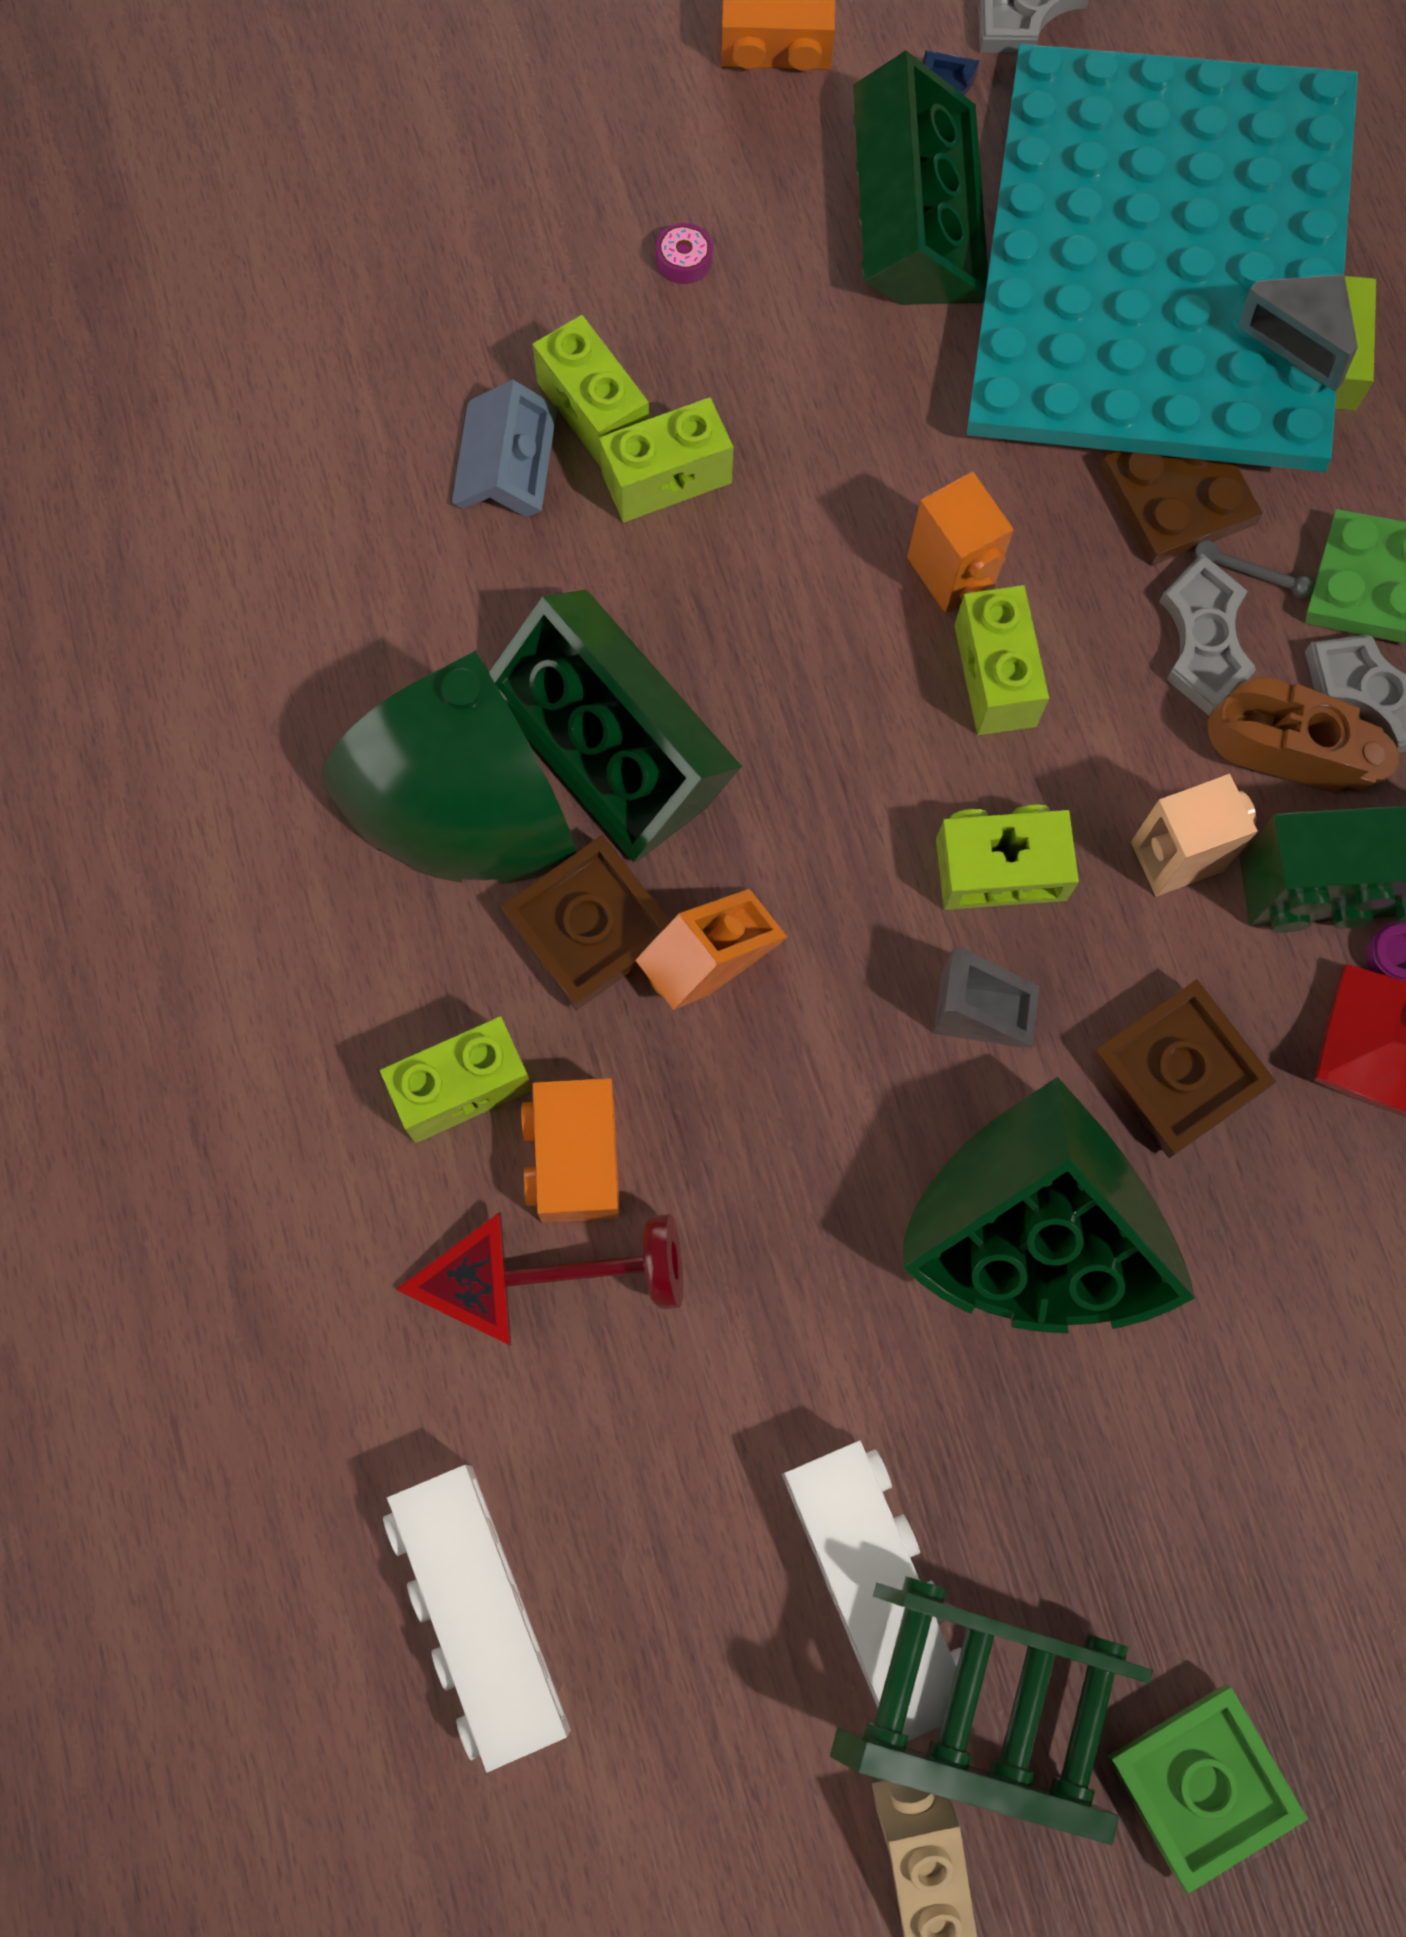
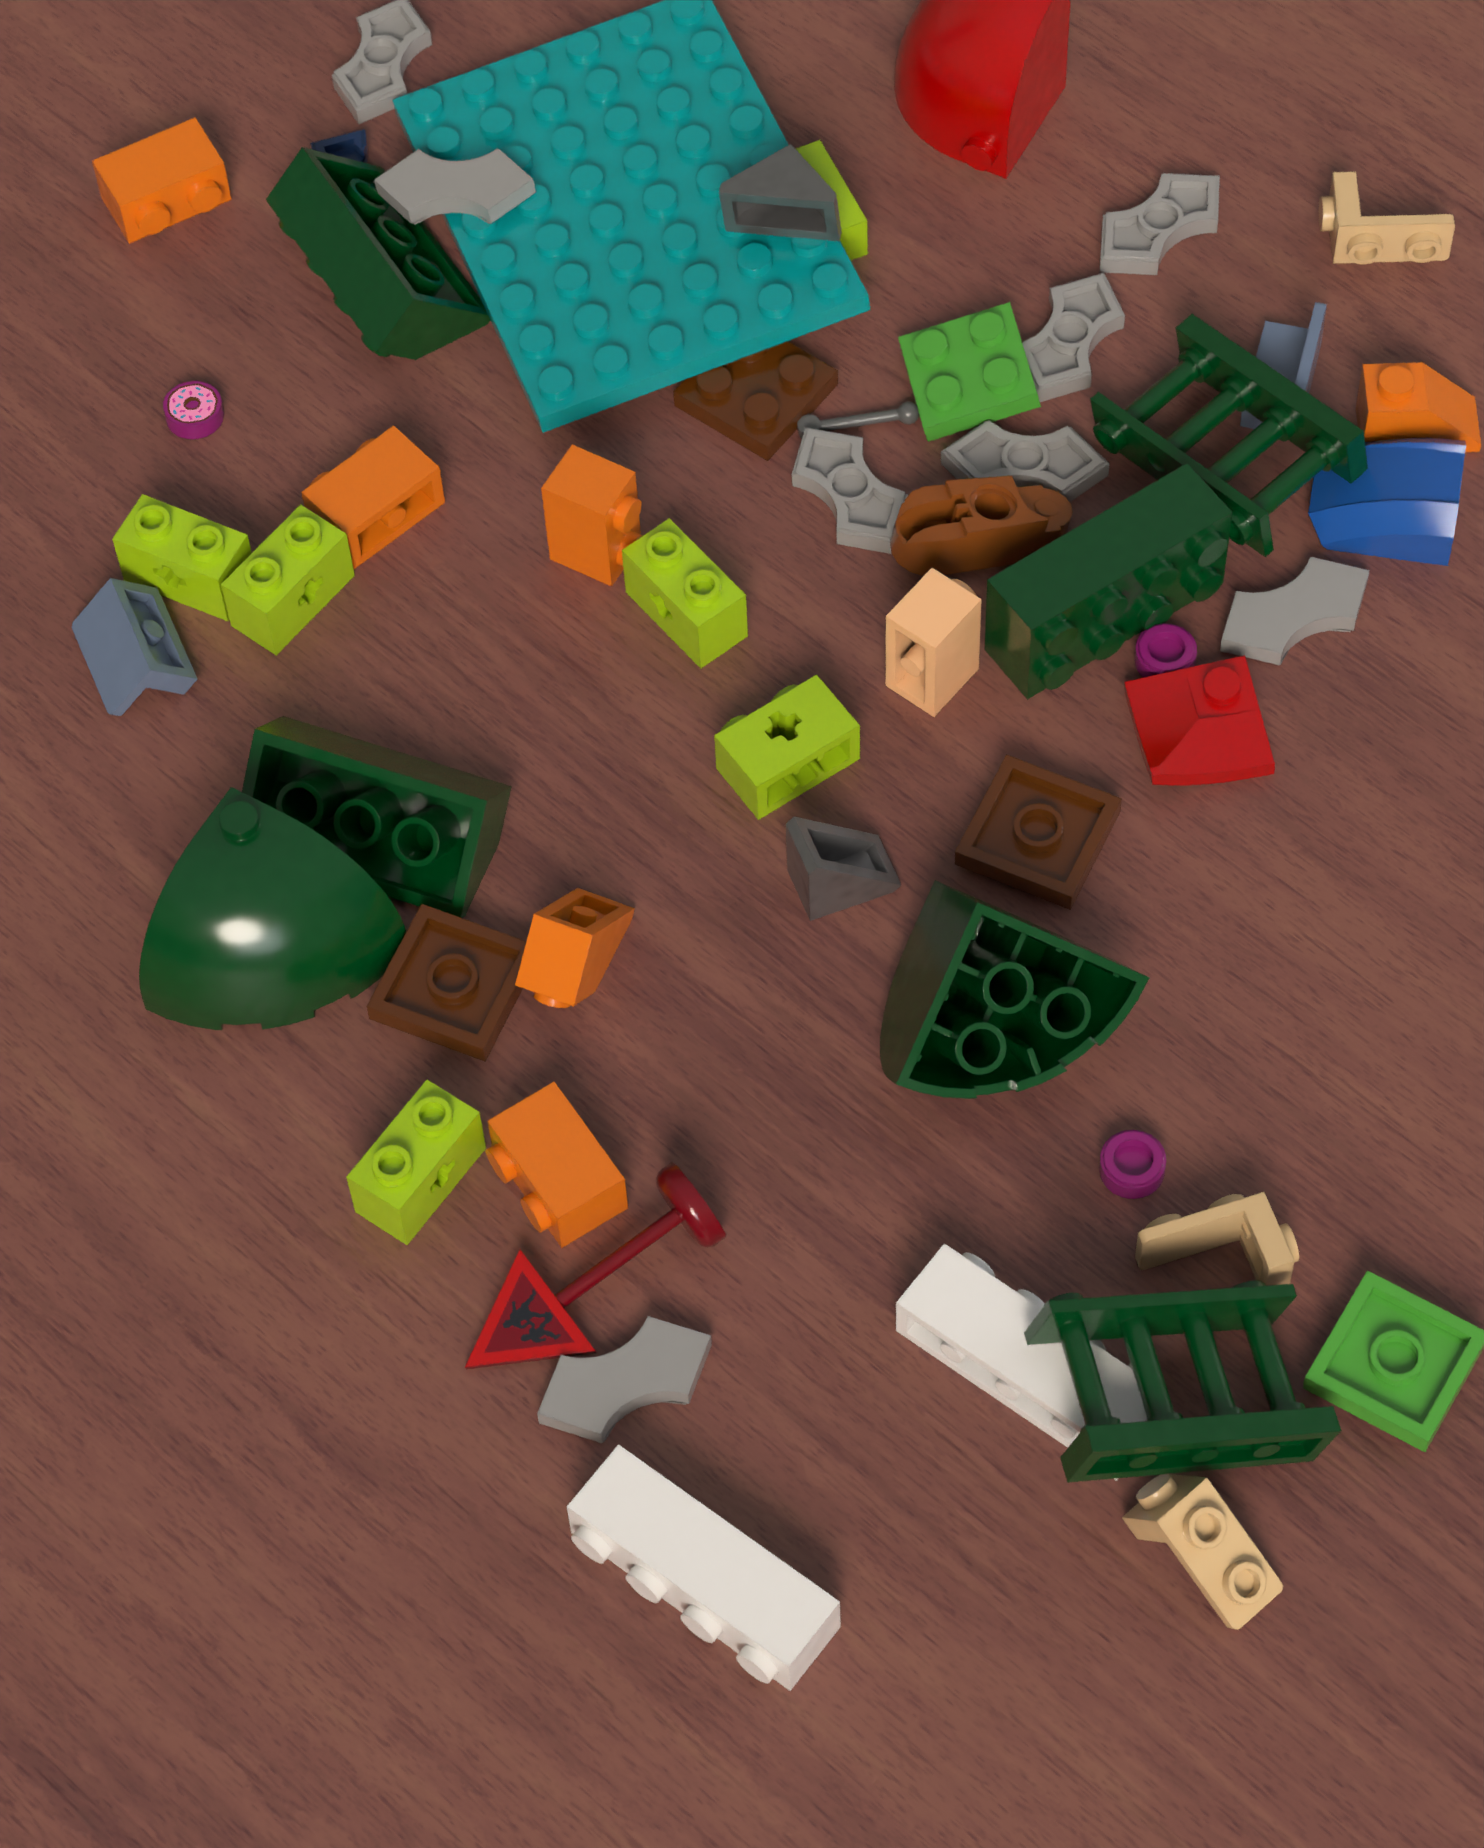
camera: 25 degrees left, 15 degrees down
(488, 1383) = (598, 1391): none -> light grey tile
(786, 418) = (377, 493): none -> orange brick
(1043, 168) = (432, 186): none -> light grey tile
(1081, 1441) = (1132, 1164): none -> magenta tile
(1154, 1603) = (1267, 1245): none -> tan bracket

